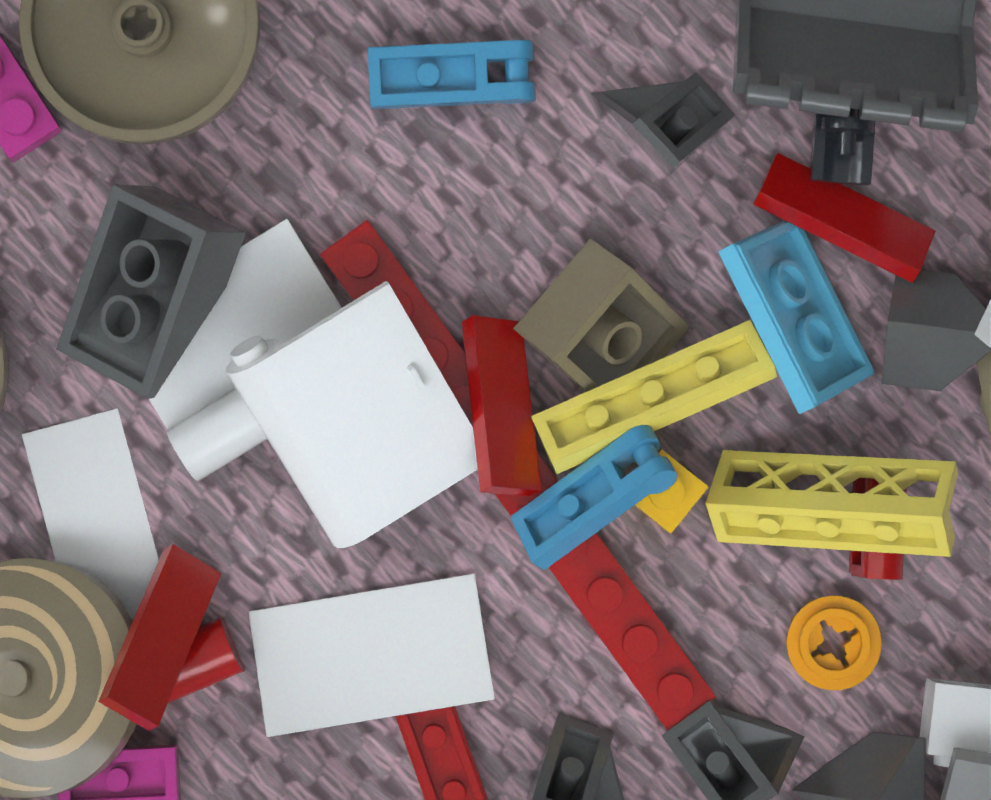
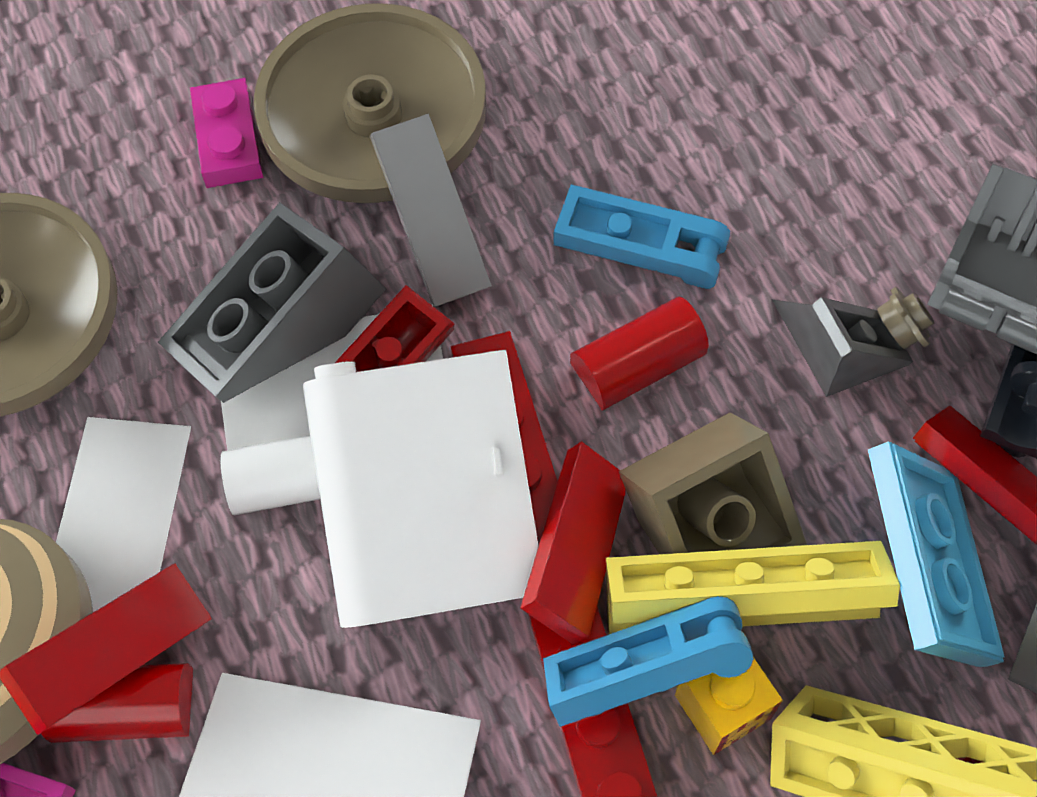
camera: 25 degrees right, 25 degrees down
(250, 131) = (430, 210): none -> light grey tile
(275, 288) = (400, 335): none -> red brick
(490, 196) = (641, 352): none -> red brick
(714, 82) = (906, 319): none -> dark tan plate

